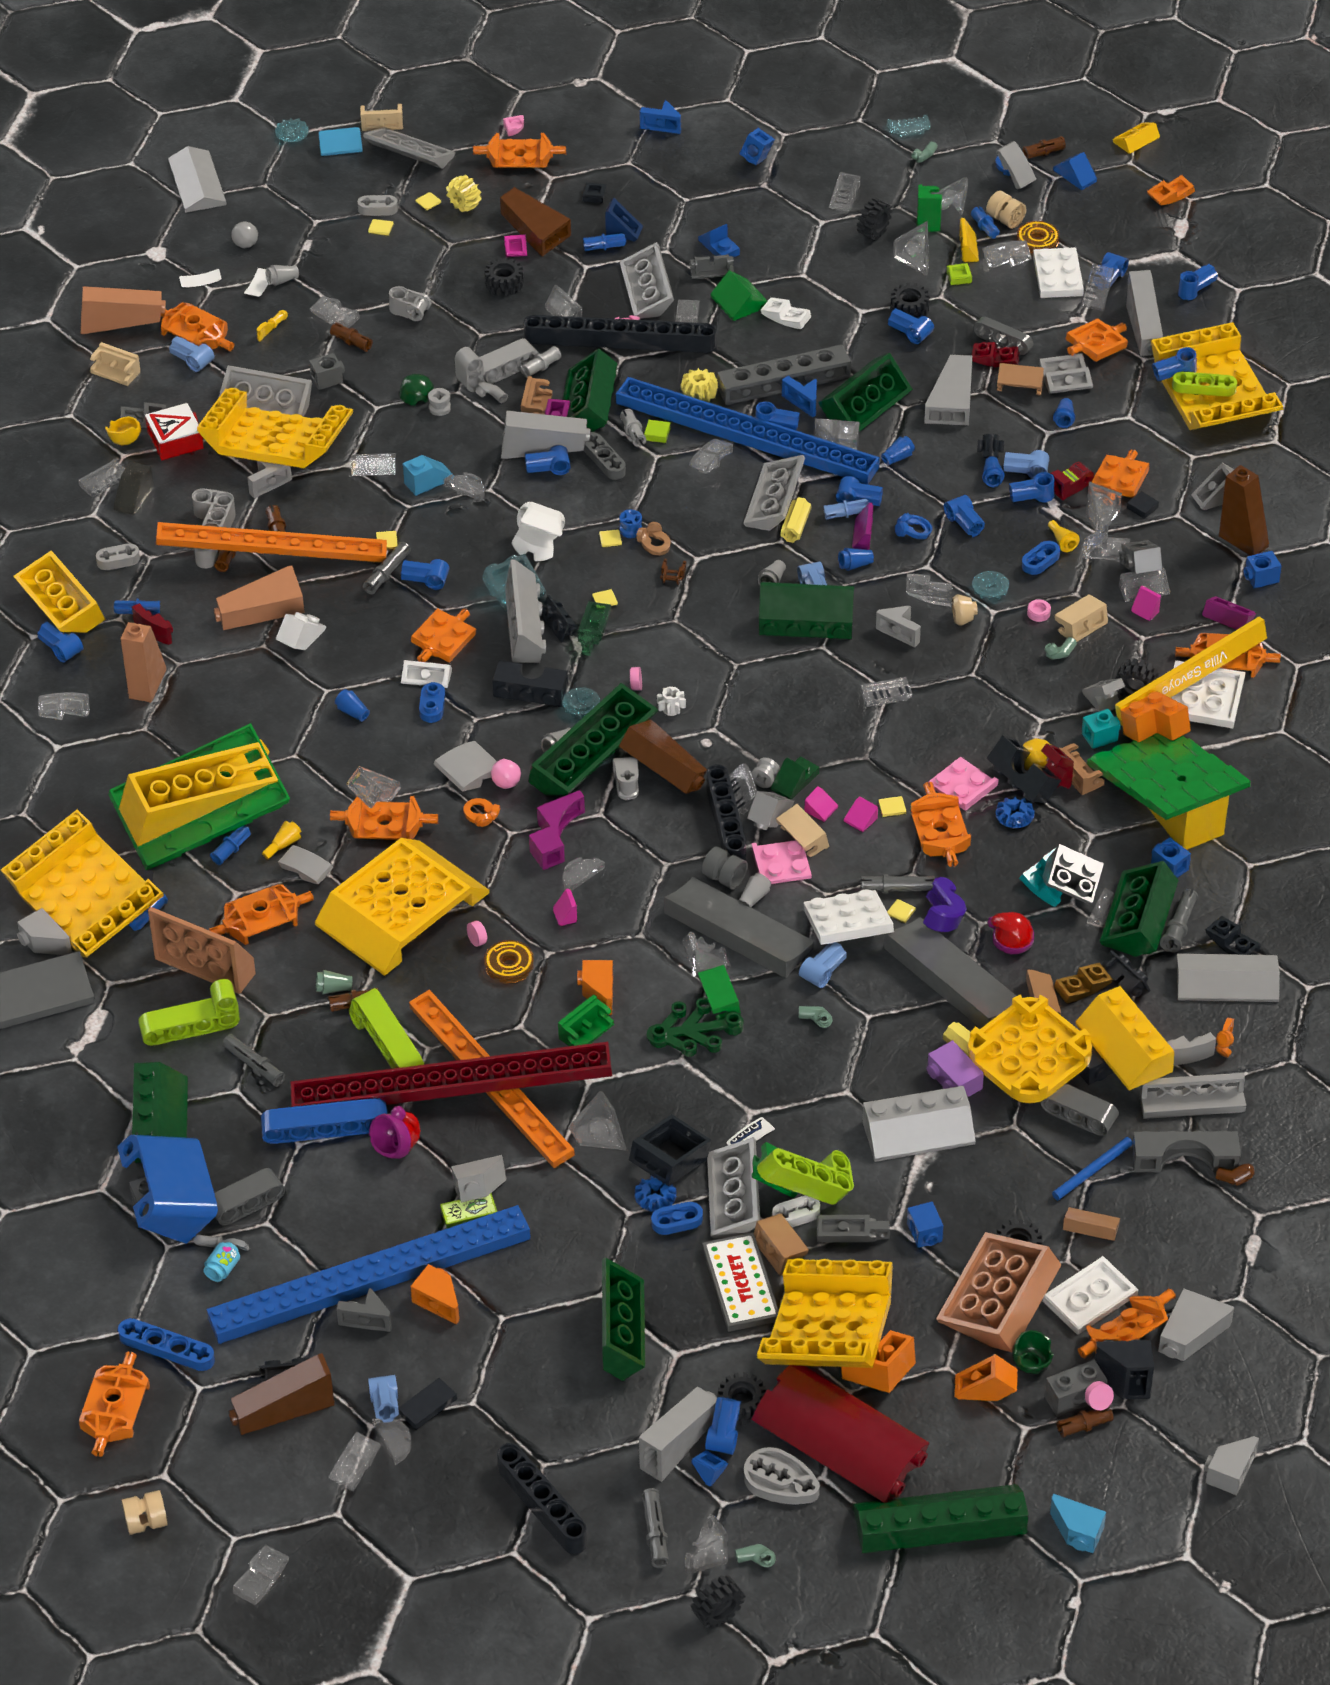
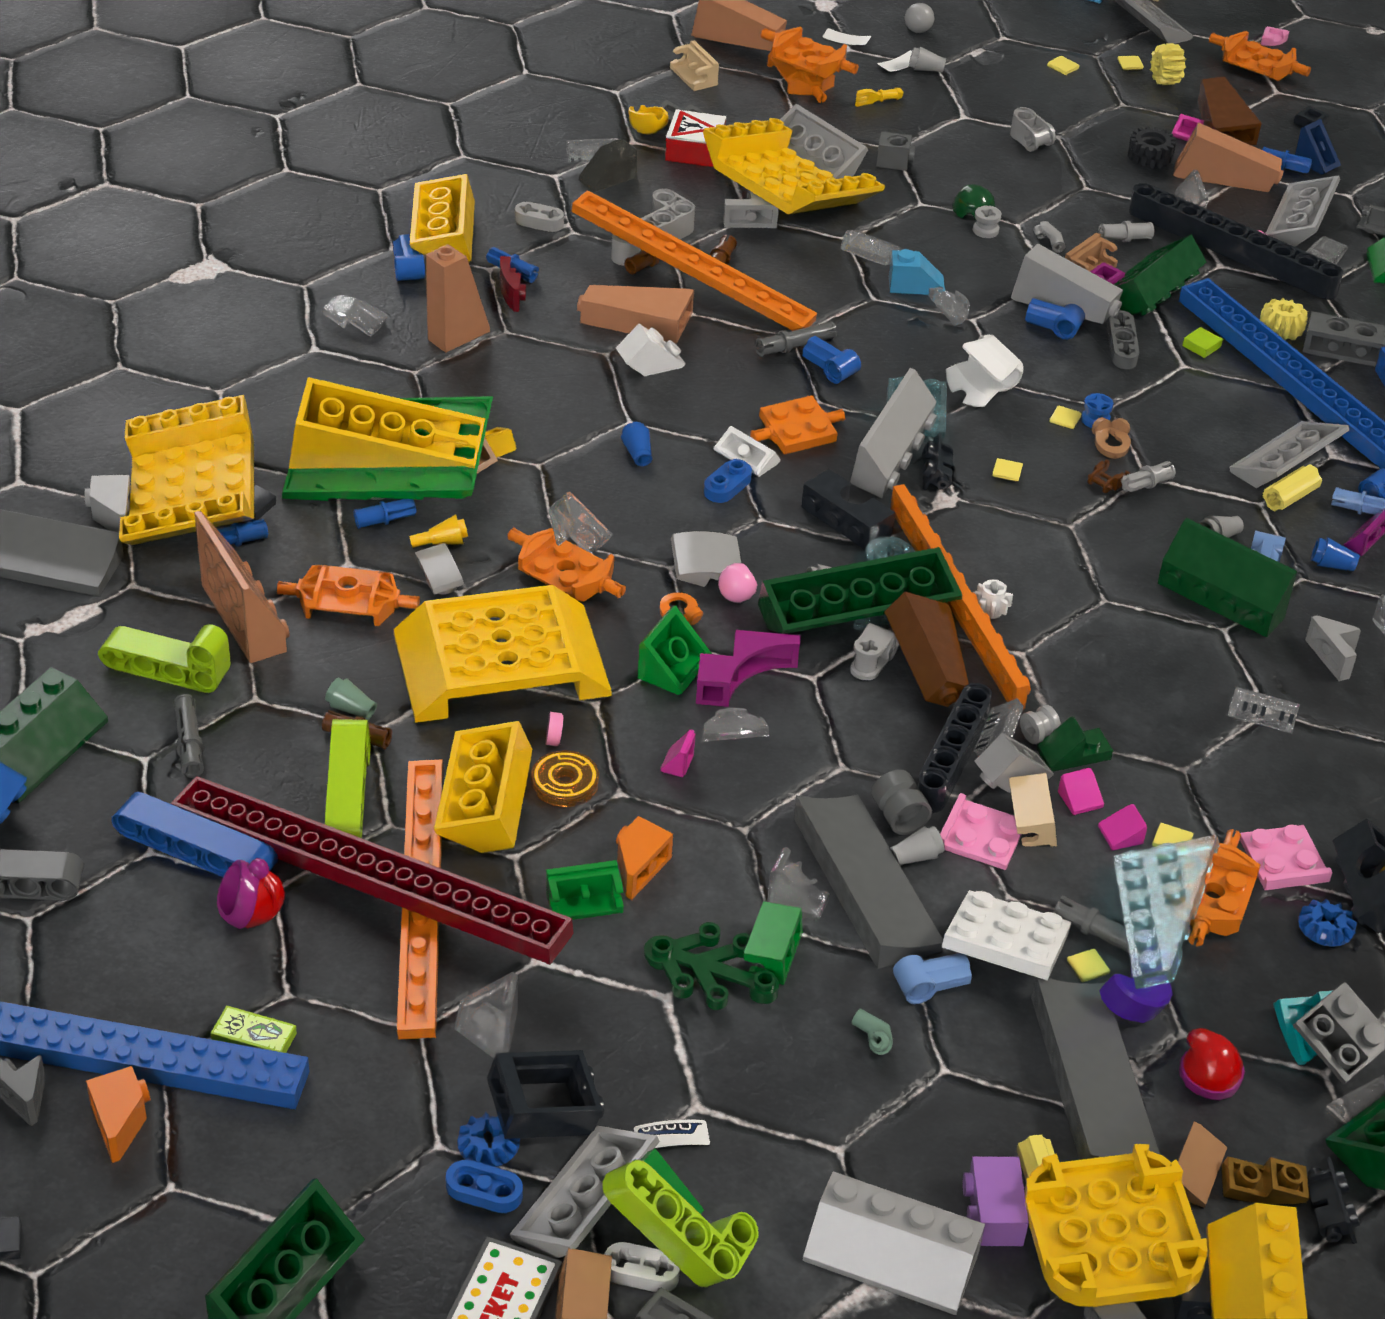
camera: 30 degrees right, 5 degrees down
(184, 314) = (806, 54): none -> orange plate
(195, 356) = (777, 88): medium blue piece -> none
(332, 311) = (950, 111): clear slope -> none
(351, 336) = (948, 135): reddish brown pin -> none
(377, 205) = (1075, 46): light grey beam -> none
(391, 538) = (824, 315): light yellow piece -> none
(471, 992) = (485, 787): none -> yellow slope
(478, 1178) = (293, 999): light grey slope -> none
(492, 366) = (1077, 209): light grey beam -> none
(508, 845) = (671, 653): none -> green slope
(568, 266) = (1227, 161): none -> nougat slope
(593, 625) = (968, 487): clear green hinge -> none
(633, 427) = (1176, 327): light grey pin -> none
(635, 678) = (971, 558): bright pink tile -> none
(668, 720) = (967, 611): none -> orange plate
(700, 558) = (1148, 477): none -> light grey axle
(710, 455) = (1241, 386): clear slope -> none
(768, 412) = (1341, 372): blue piece -> none
(920, 849) = (1158, 899): none -> clear light blue wing

